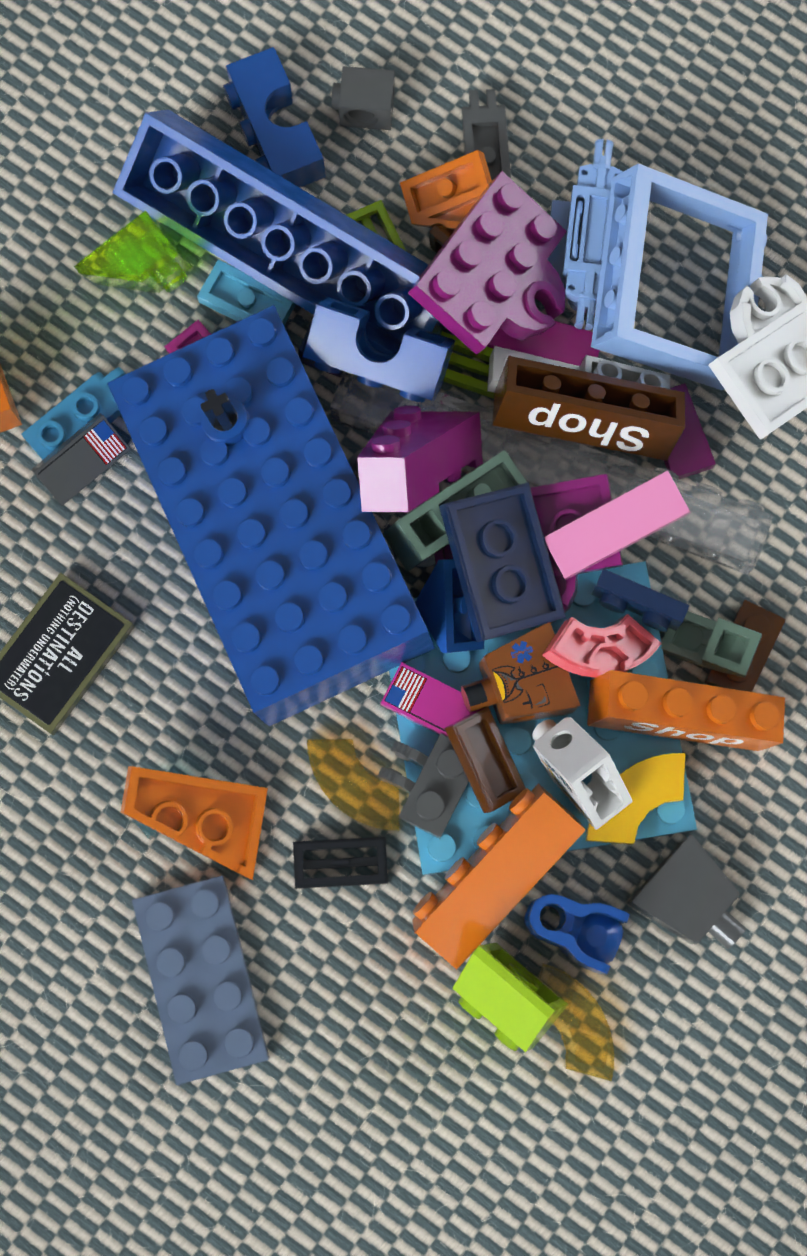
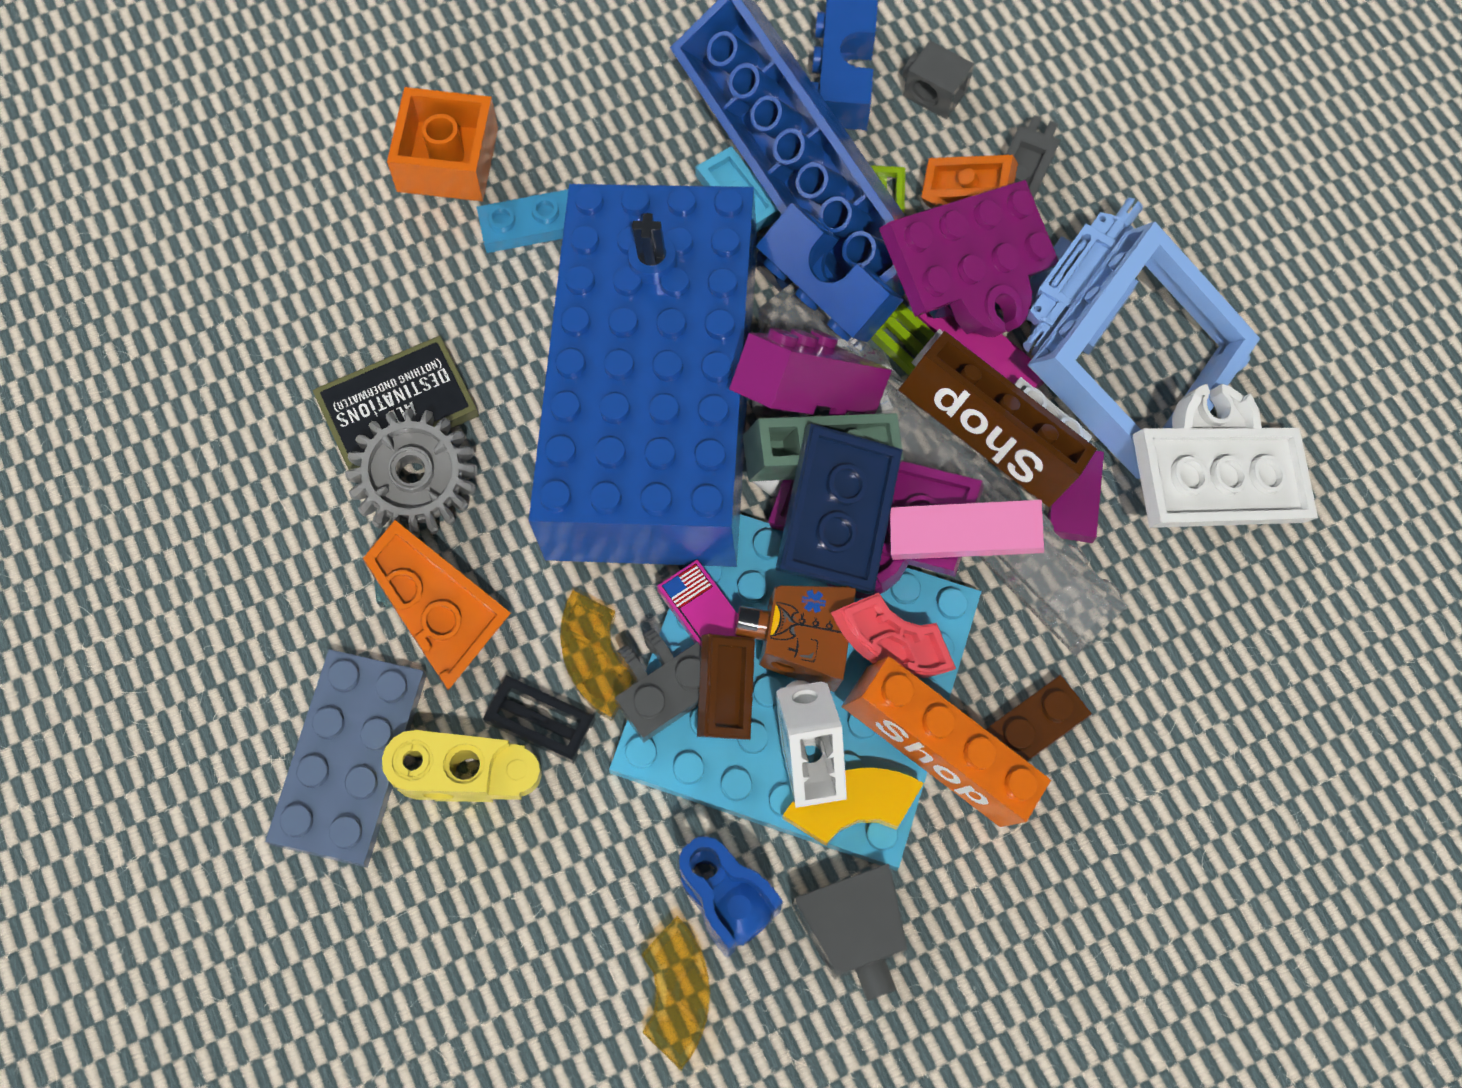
camera: 25 degrees right, 10 degrees down
(81, 459) = (514, 251): dark grey tile -> none
(107, 683) = (407, 444): none -> light grey gear
(137, 259) = (658, 107): clear neon green slope -> none
(340, 923) = (504, 769): none -> light yellow piece
(445, 610) = (762, 534): blue slope -> none
(496, 875) = (675, 803): orange brick -> none
(508, 996) = (622, 924): lime slope -> none
(623, 594) = (965, 630): dark blue plate -> none
(712, 644) = (1003, 697): sand green slope -> none

